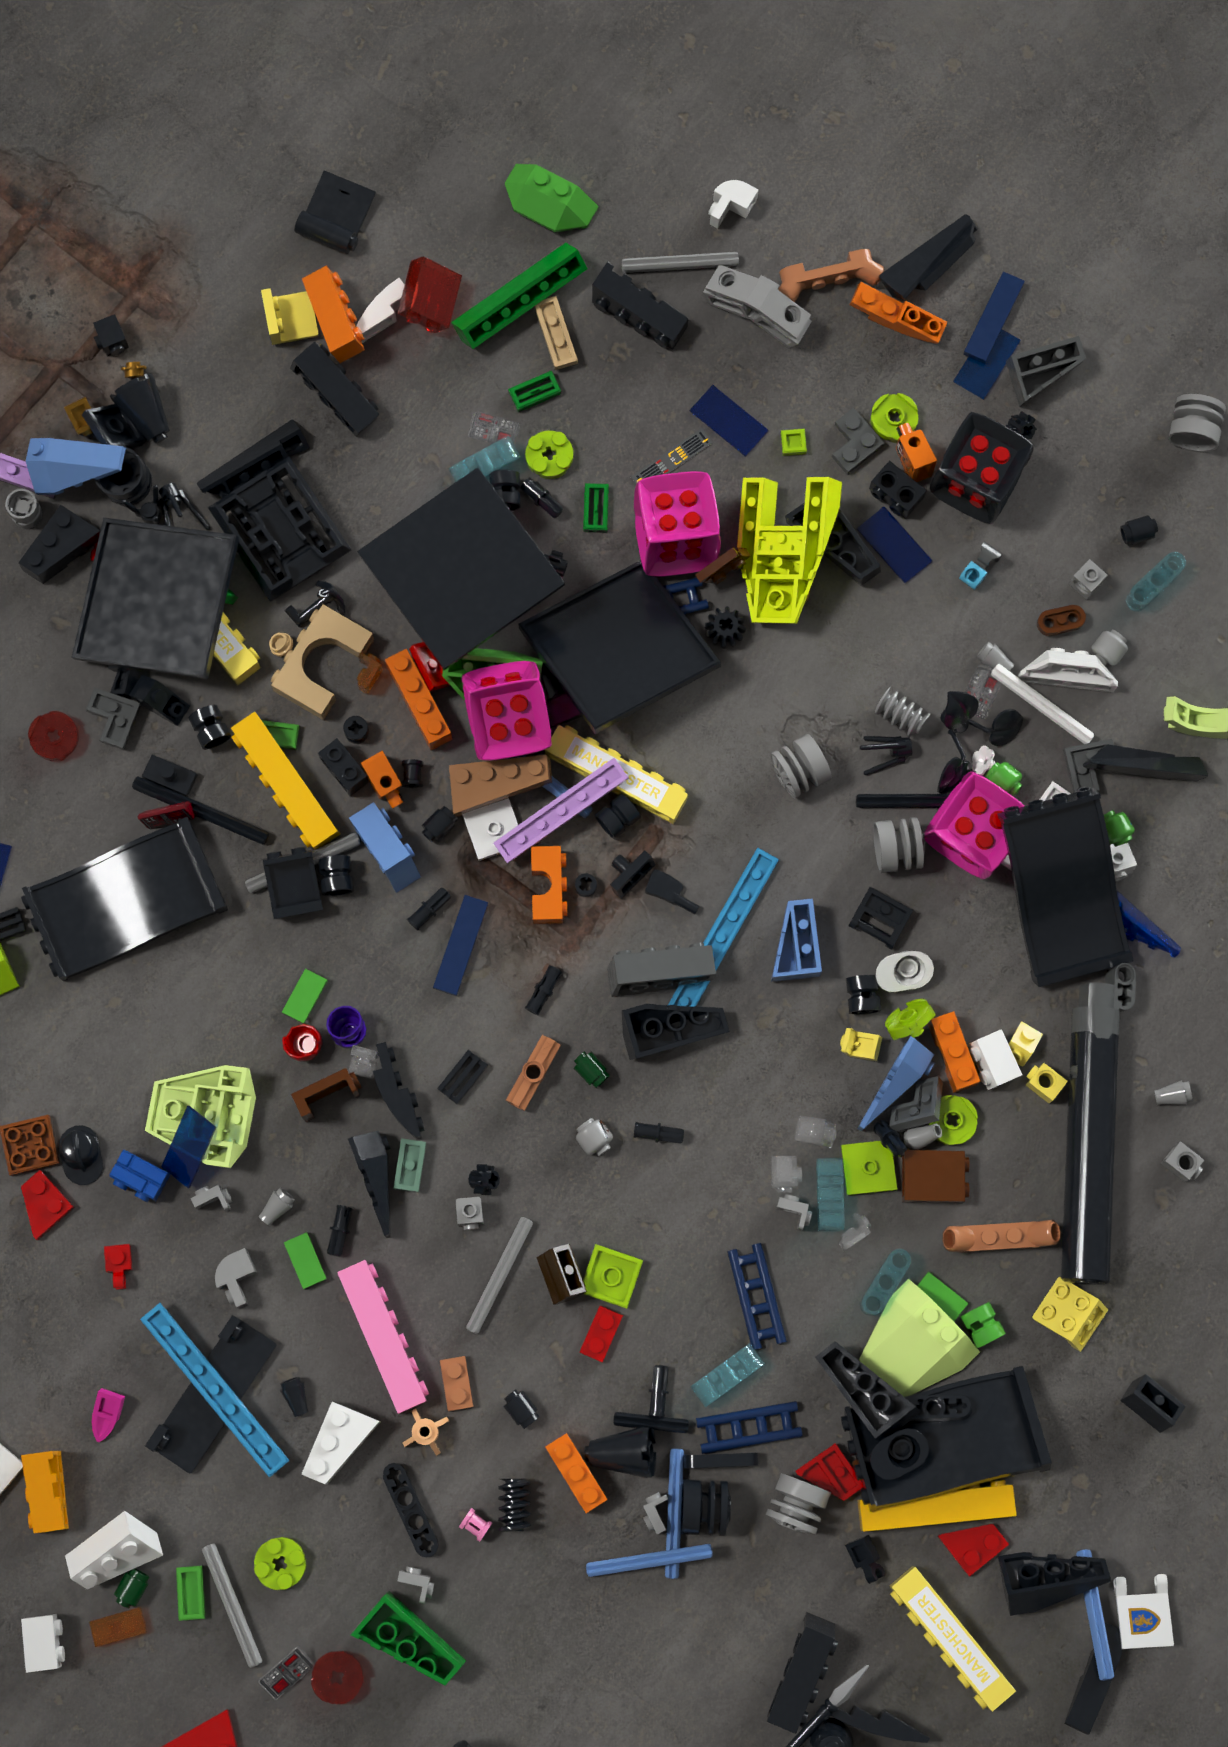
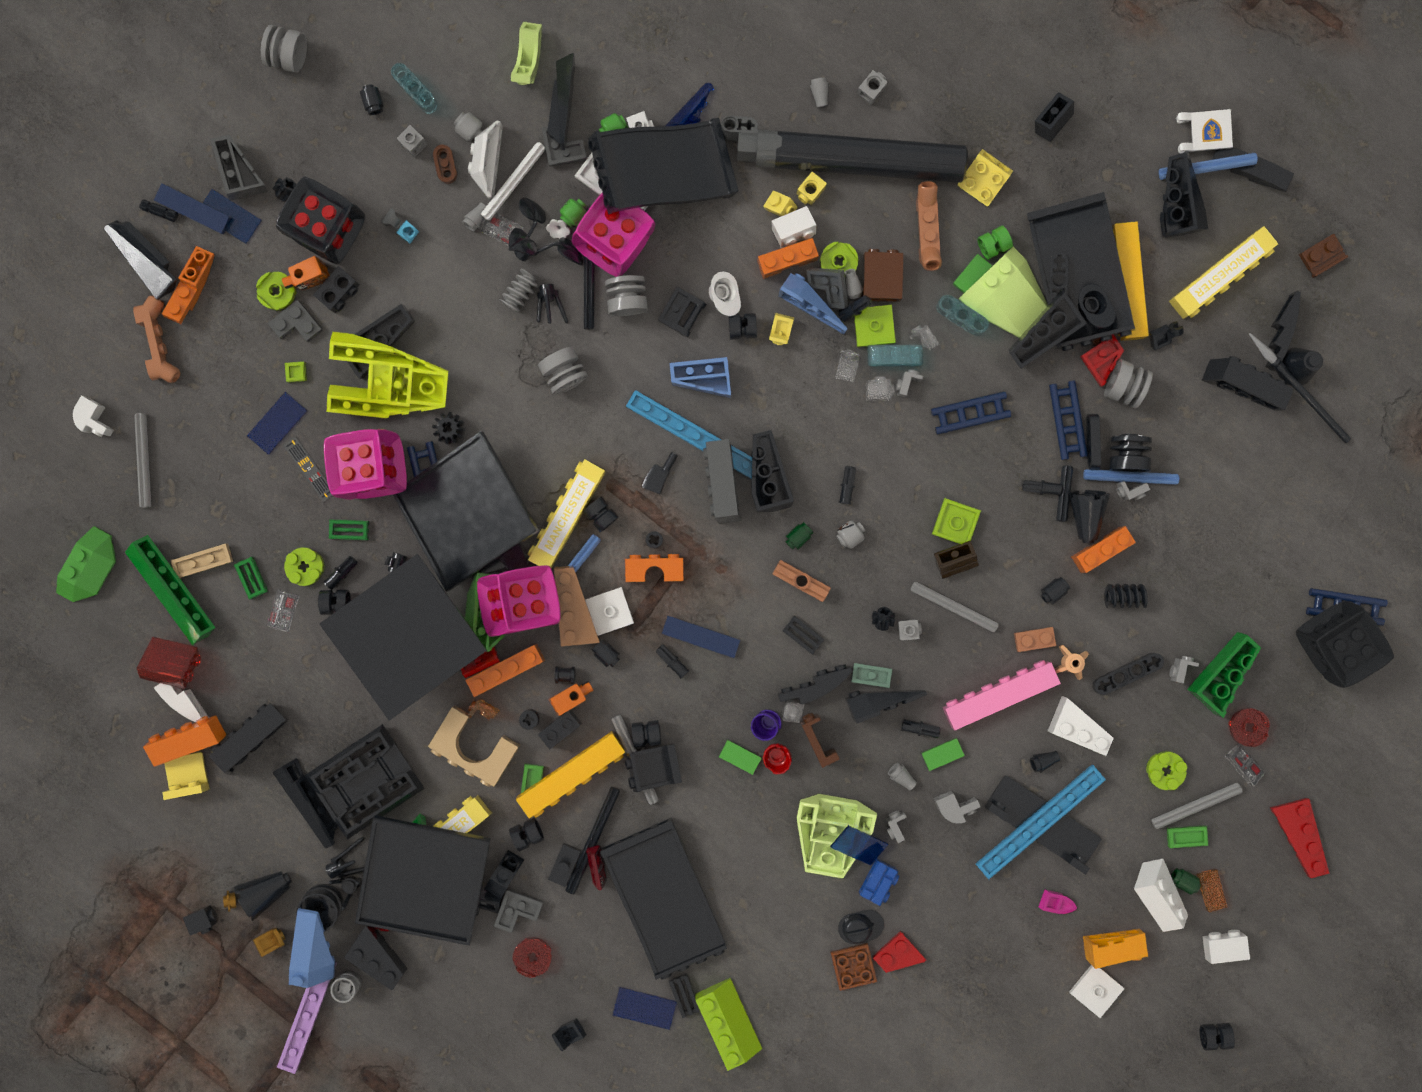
camera: 85 degrees left, 10 degrees up
(113, 427) = (279, 917): black tile -> none
(118, 1260) = (942, 896): red plate -> none
(280, 644) = (459, 779): tan plate -> none
(326, 595) = (422, 745): black piece -> none
(334, 215) = (97, 739): black door -> none
(385, 846) = (623, 696): medium blue wedge -> none
(475, 1524) = (1140, 624): bright pink bush -> none
(487, 460) = (309, 617): clear light blue beam -> none
(543, 990) = (736, 572): black pin -> none
(561, 810) = (597, 558): lavender plate -> none
(601, 1334) = (998, 530): red plate -> none
(630, 872) = (645, 505): black tile -> none
(637, 308) = (181, 494): black wedge -> none
(649, 1560) = (1167, 495): medium blue axle -> none
(717, 570) = (403, 433): reddish brown plate -> none
(727, 1375) = (1030, 435): clear light blue beam -> none
(759, 302) = (178, 396): light grey brick -> none
(894, 544) = (381, 294): clear blue piece -> none
(910, 1020) = (763, 290): lime plate -> none
(974, 1546) = (1155, 254): red wing -> none
(990, 277) = (158, 210): none -> black axle

